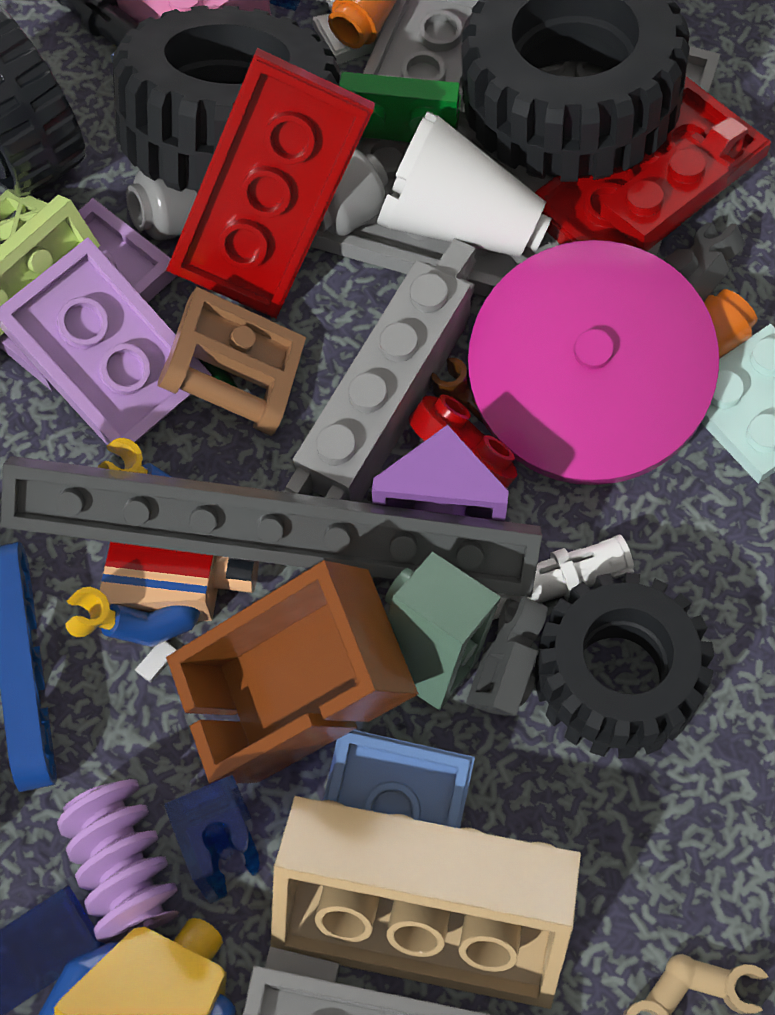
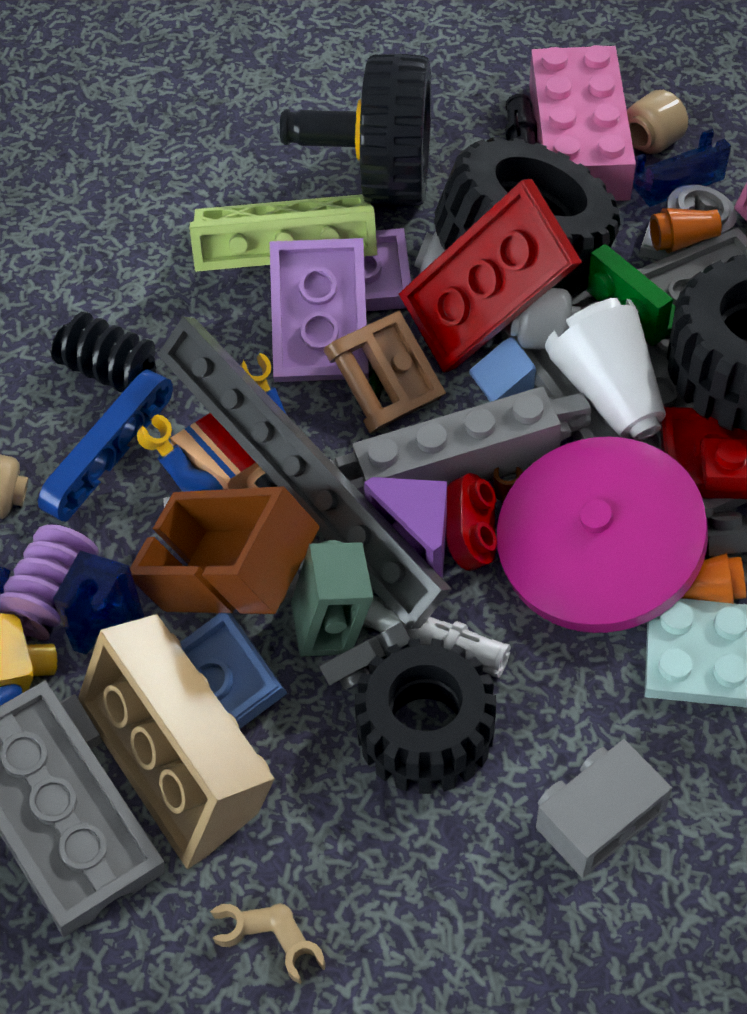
camera: 45 degrees right, 10 degrees down
(336, 273) = (504, 371): none -> light blue slope

